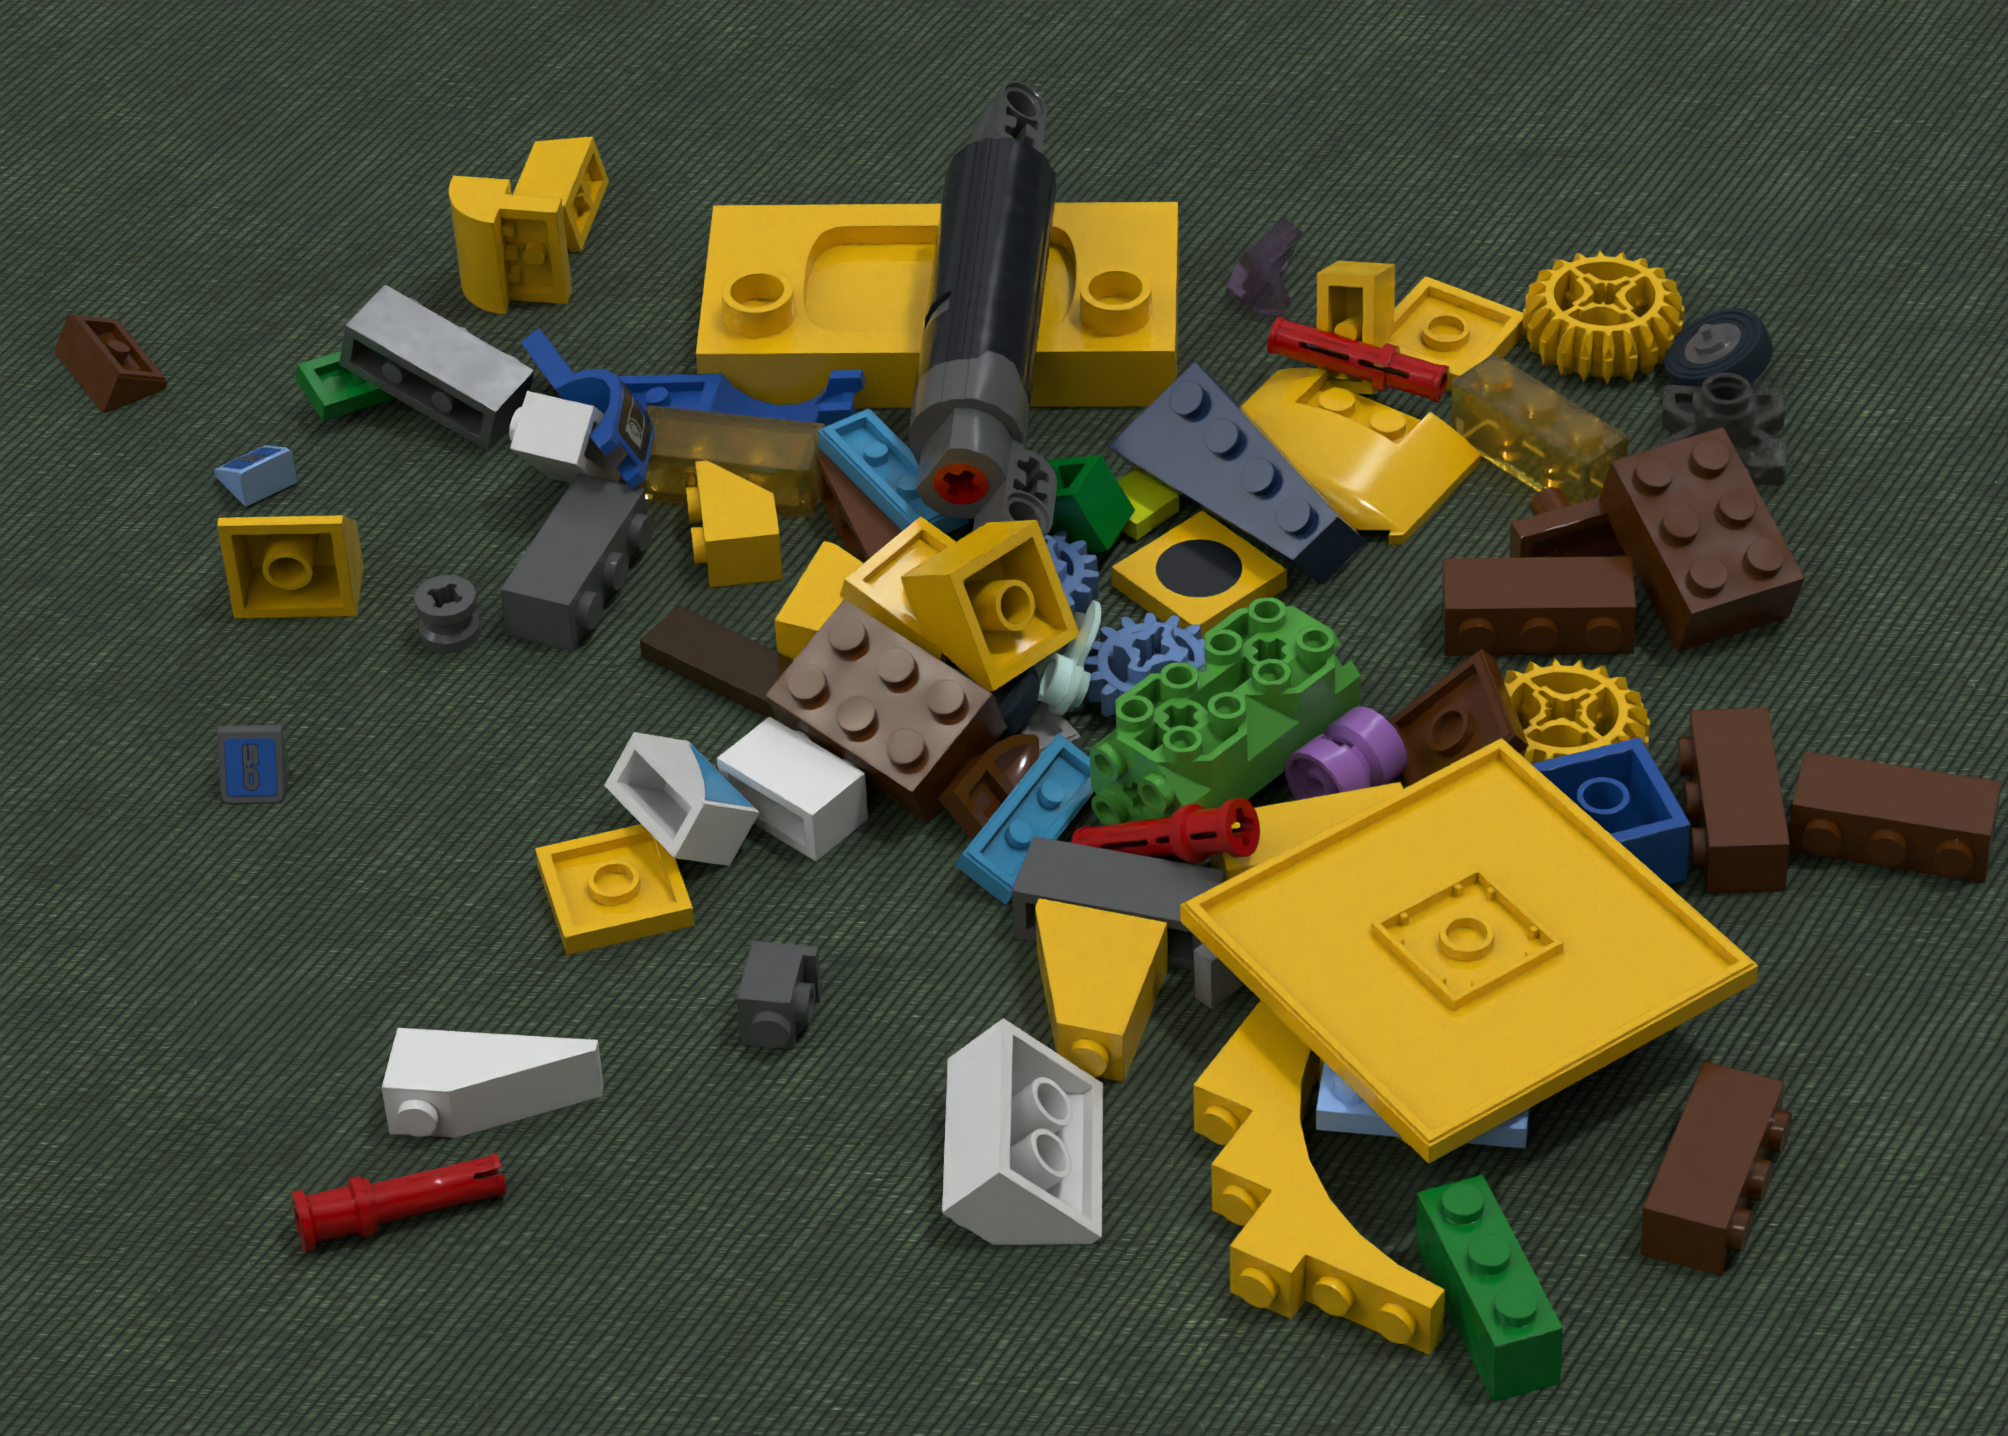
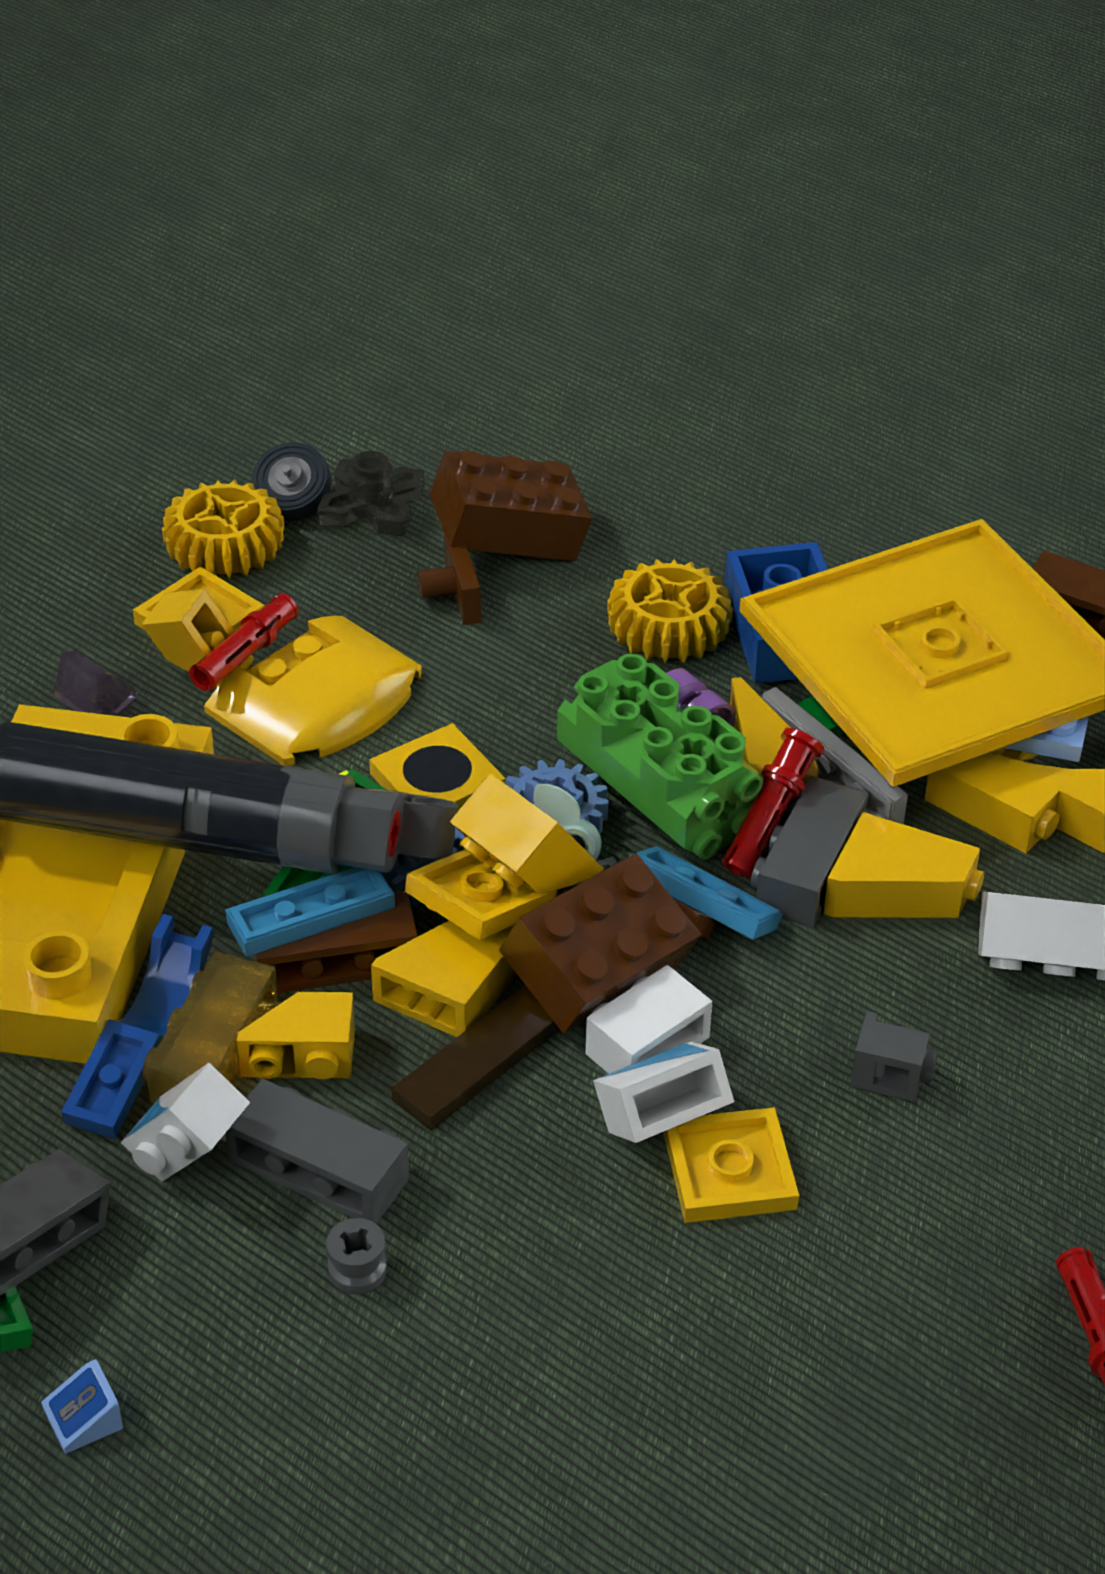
camera: 85 degrees left, 0 degrees up
(252, 764) = (535, 1422): slope -> none
(292, 565) = (263, 1362): yellow slope -> none
(477, 1081) = (978, 1270): white slope -> none
(624, 417) = (117, 1115): blue piece -> none
(1230, 468) = (364, 715): dark blue wedge -> none
(1458, 718) = (678, 638): reddish brown tile -> none
(1534, 430) = (353, 572): clear yellow brick -> none
(1538, 605) = (535, 604): reddish brown brick -> none
(1734, 801) = (717, 529): reddish brown brick -> none
(1894, 816) = (781, 483): reddish brown brick -> none

